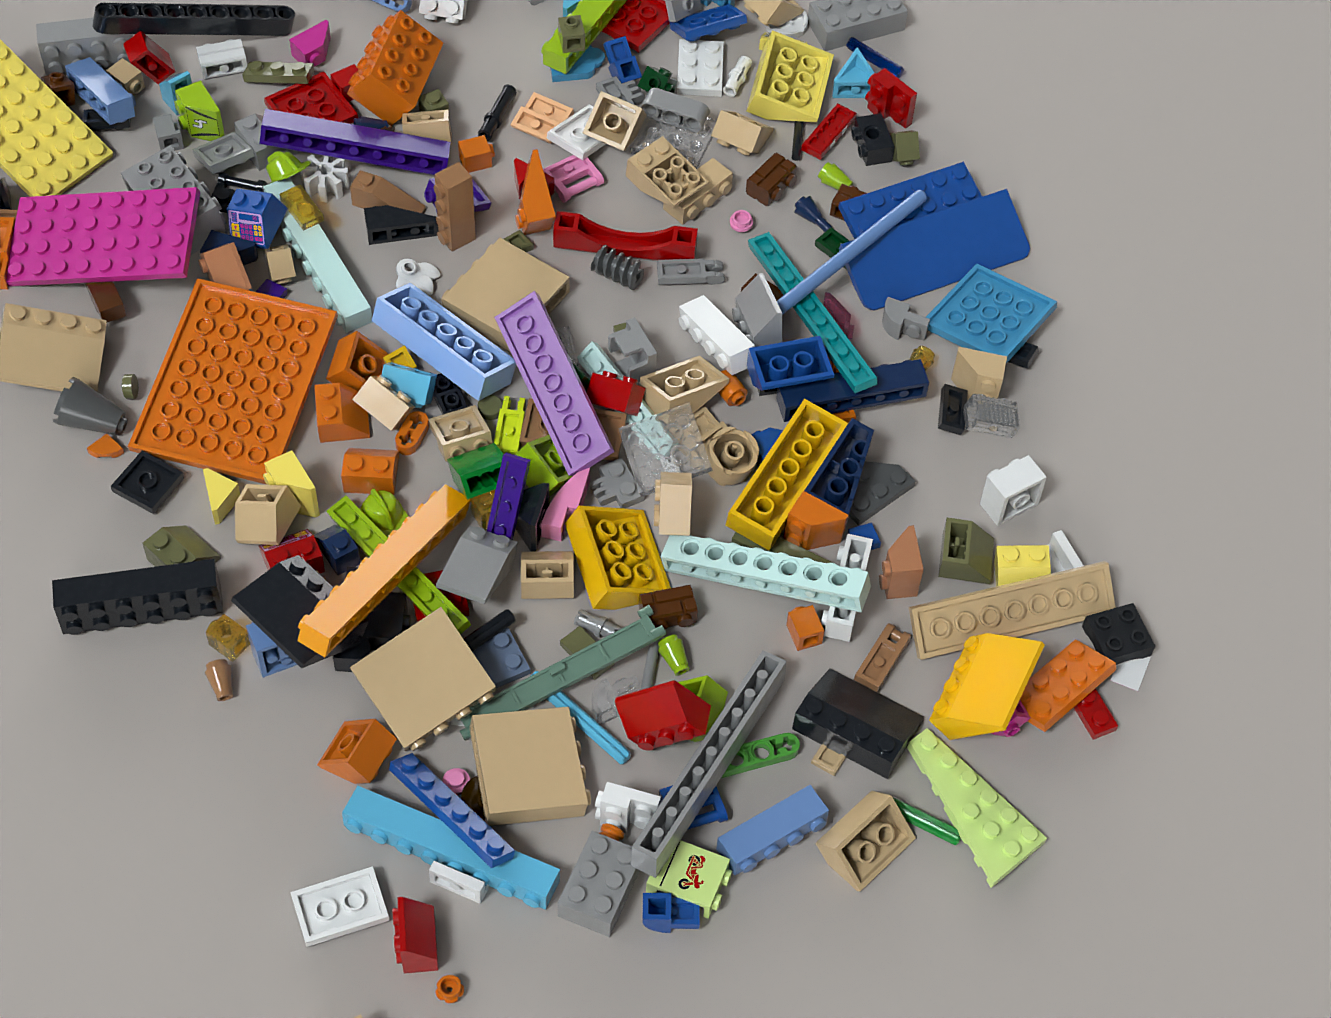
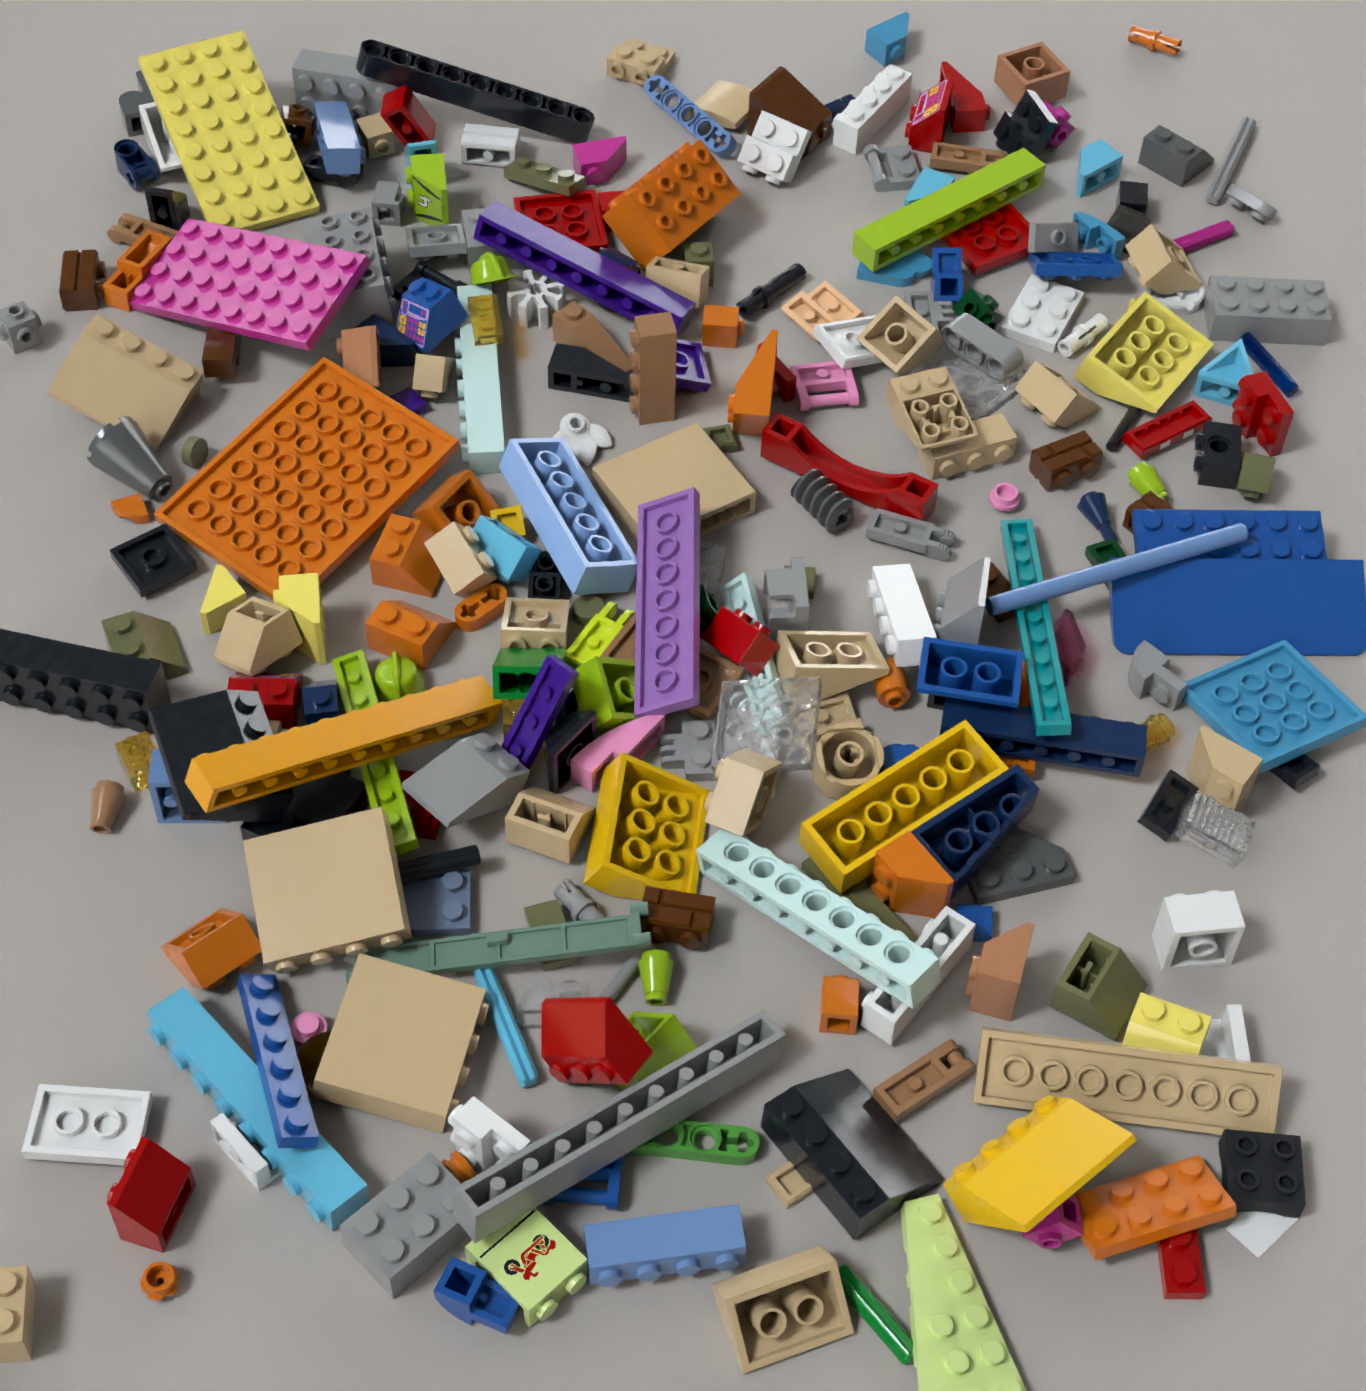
camera: 25 degrees right, 5 degrees down
(571, 33) = (892, 223): olive brick -> none

